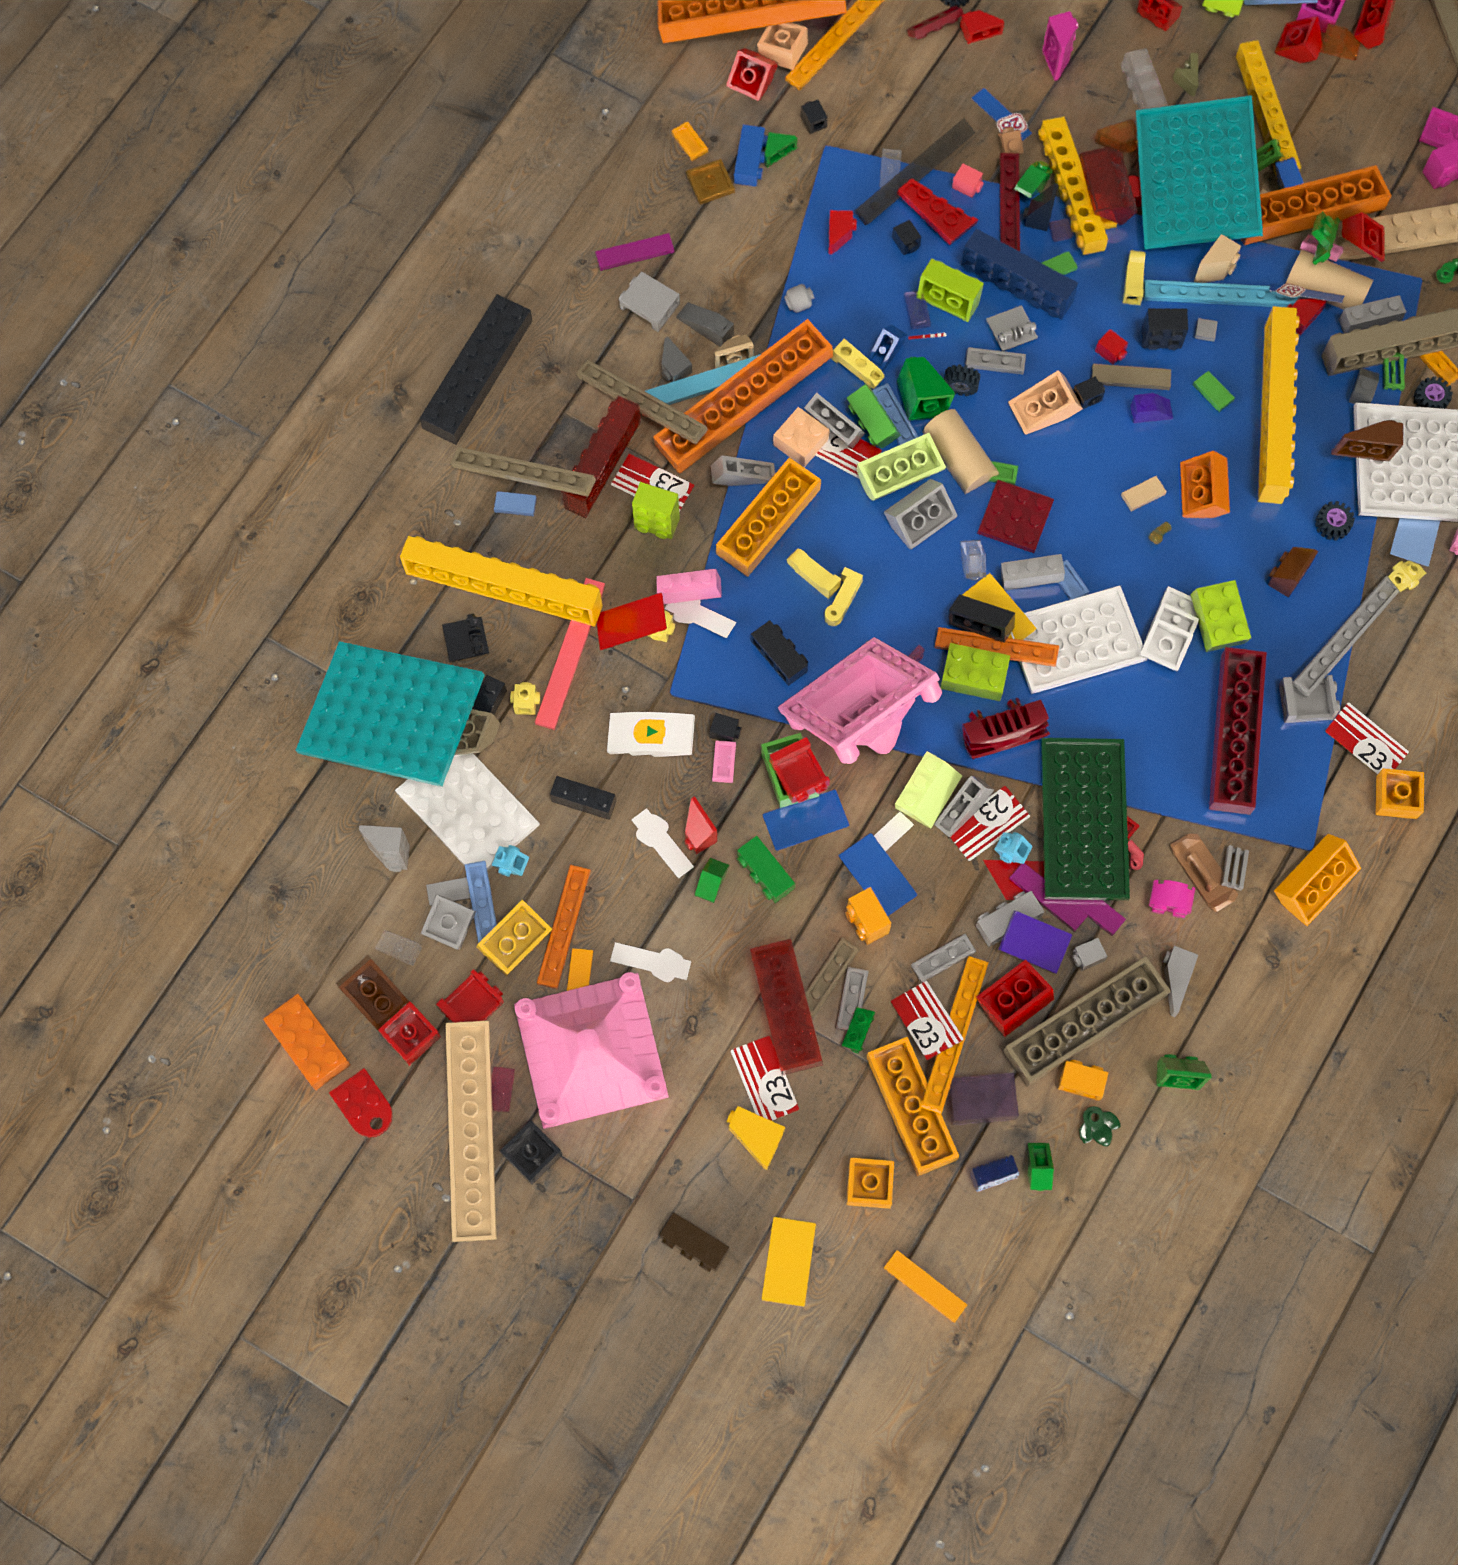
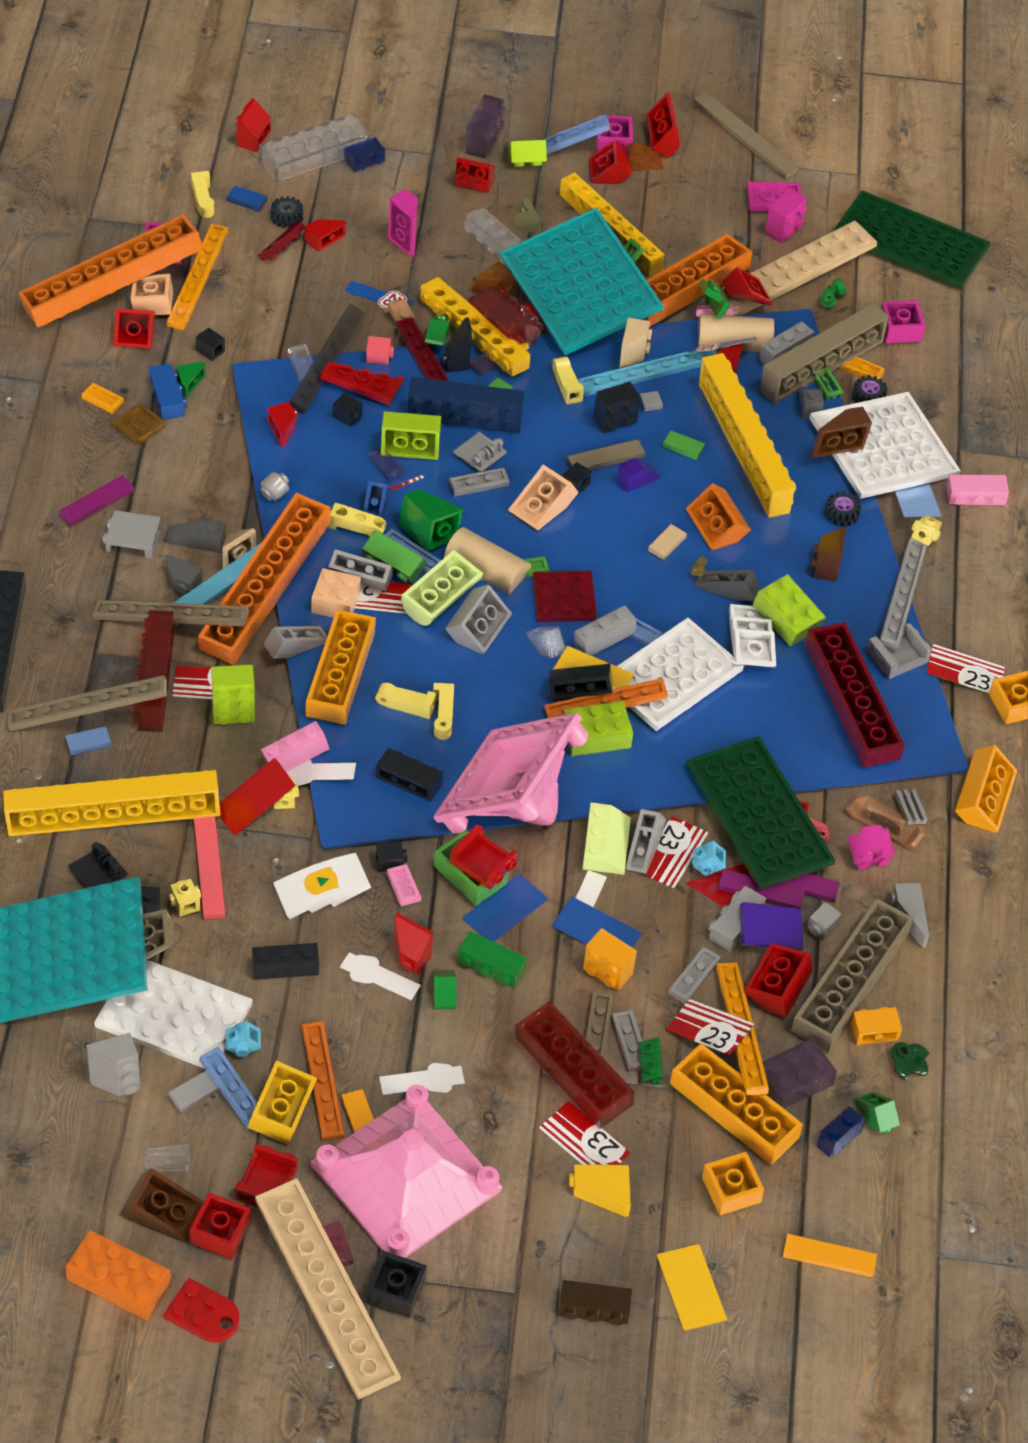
camera: 30 degrees left, 20 degrees down
(448, 922) = (208, 1115): light grey plate -> none
(962, 379) = (463, 498): black wheel -> none
(1005, 729) = (650, 761): dark red piece -> none
(1112, 347) = (577, 438): red brick -> none
(1180, 564) = (733, 584): none -> dark grey slope
(1182, 1073) = (961, 984): green slope -> none
(1288, 173) = (656, 261): blue slope -> none

